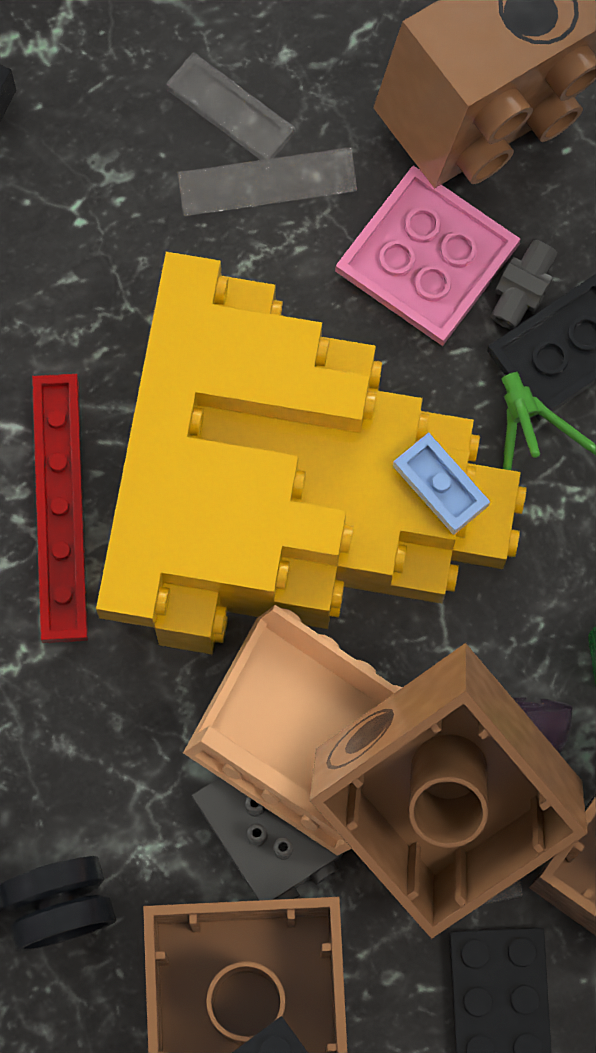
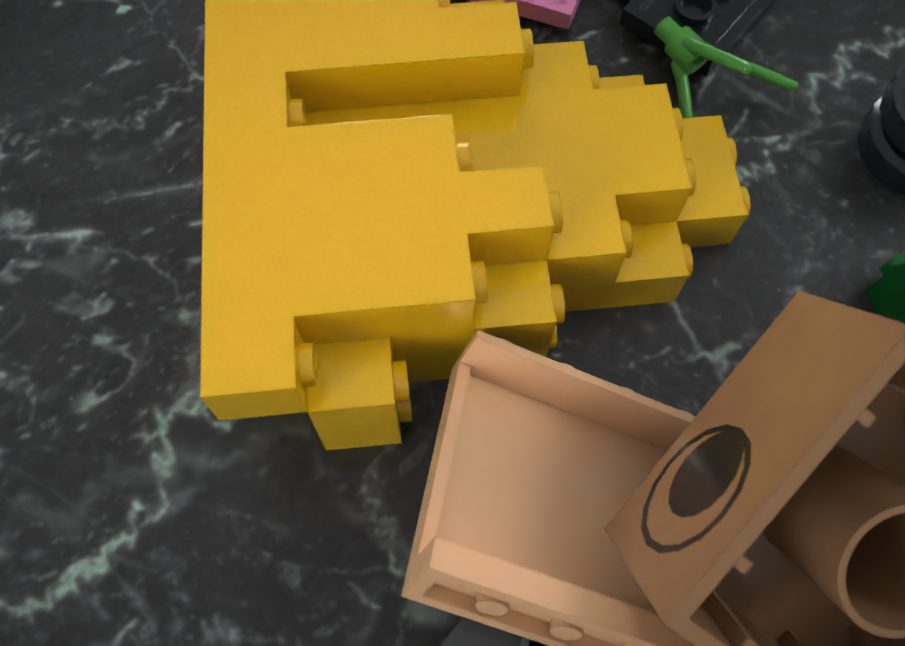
camera: 15 degrees left, 10 degrees down
(59, 508) = (153, 320): red plate -> none
(441, 483) = (652, 117): light blue plate -> none

